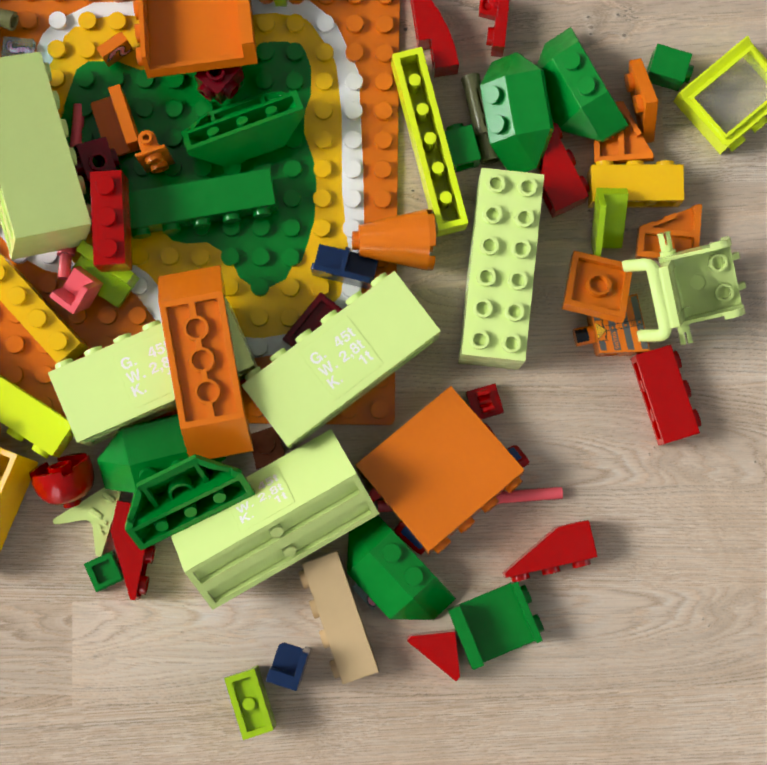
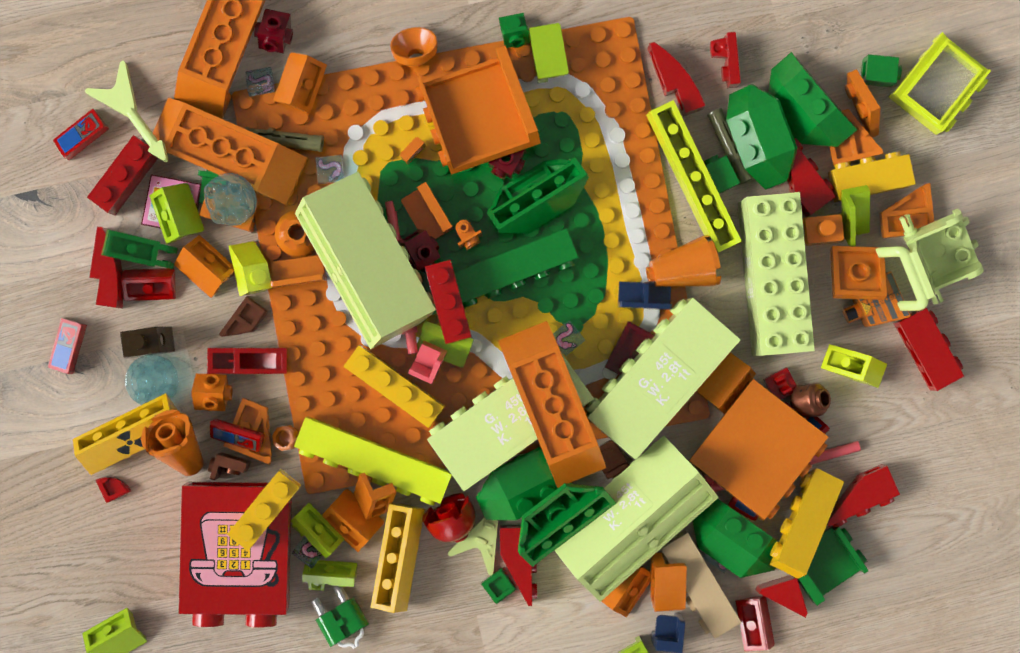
camera: 15 degrees left, 5 degrees up
(245, 297) = (568, 338): none -> tile
(253, 607) = (628, 592): none -> orange panel
(301, 608) = (667, 584): none -> orange panel
(398, 679) = (755, 623): none -> red slope
(419, 384) = (726, 382): none -> orange panel
(479, 569) = (806, 523): none -> yellow brick
(514, 425) = (810, 400): none -> copper head
(564, 231) = (823, 230): none -> orange torso
(574, 397) = (854, 365): none -> neon yellow slope

